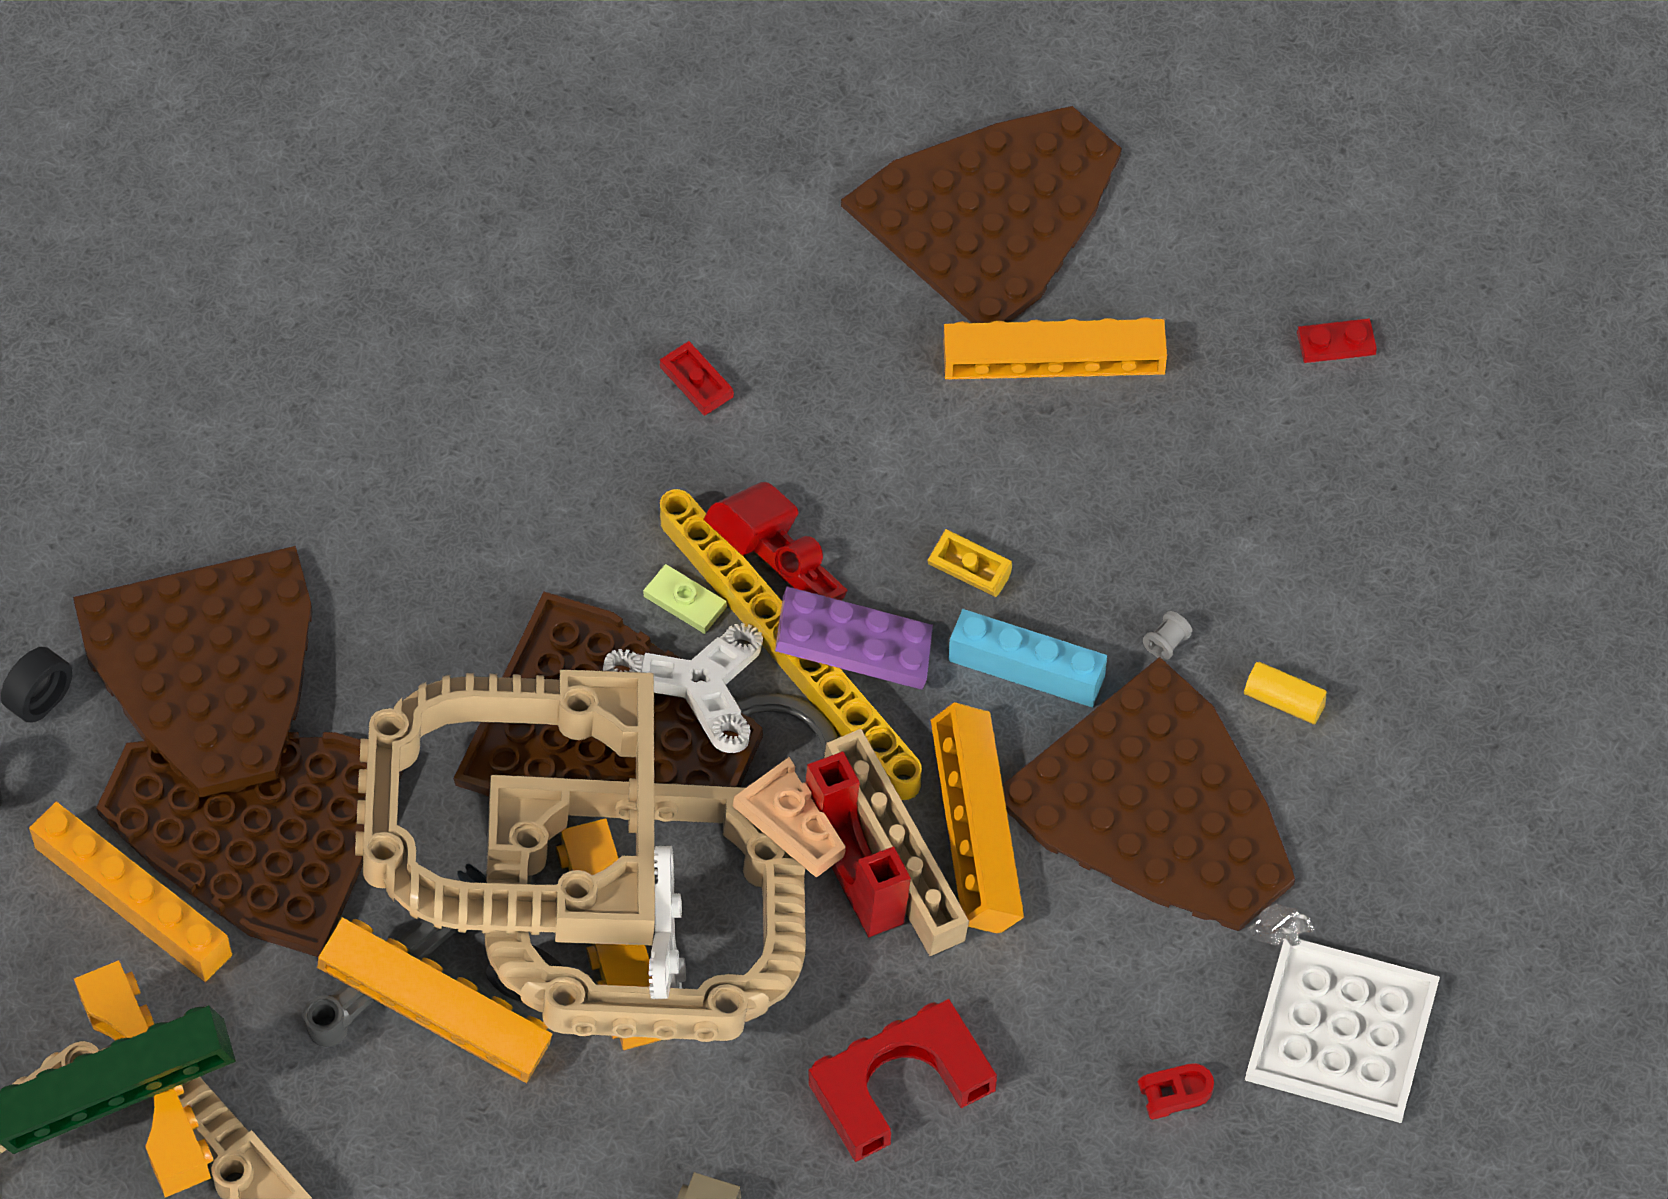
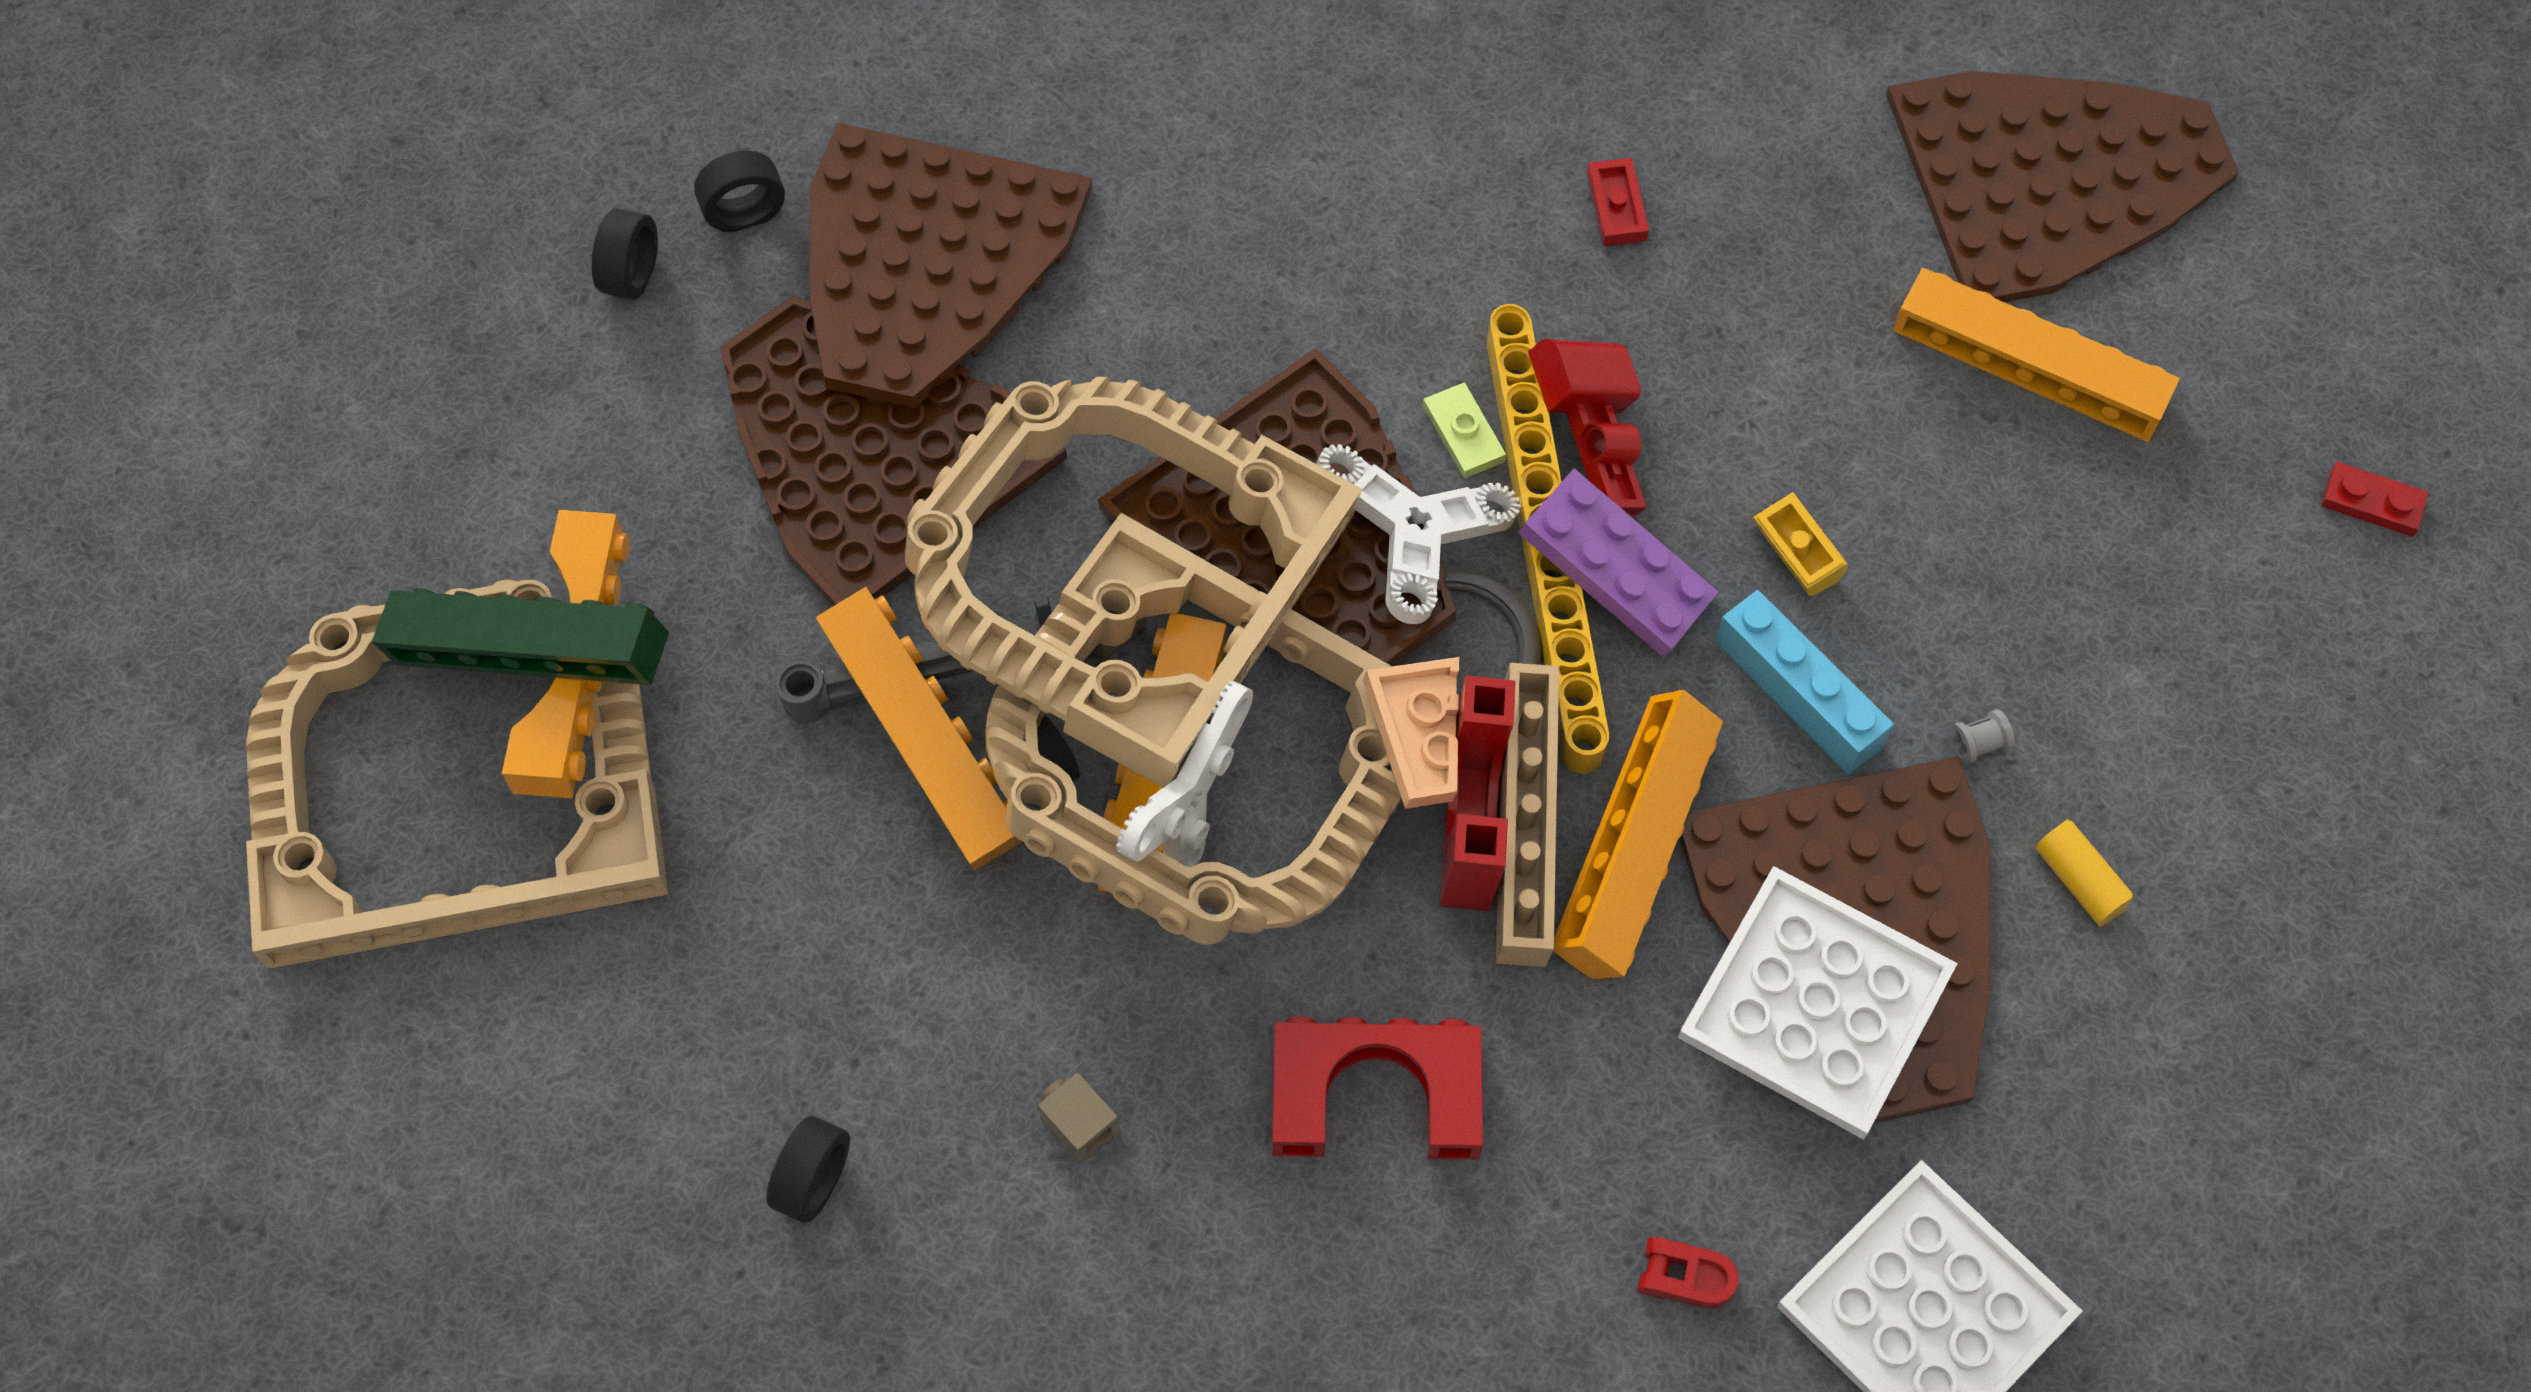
camera: 30 degrees right, 5 degrees up
(131, 891) = (697, 453): light orange brick -> none
(1161, 866) = (1818, 1002): none -> white plate
(1280, 923) = (1923, 1143): clear plate -> none

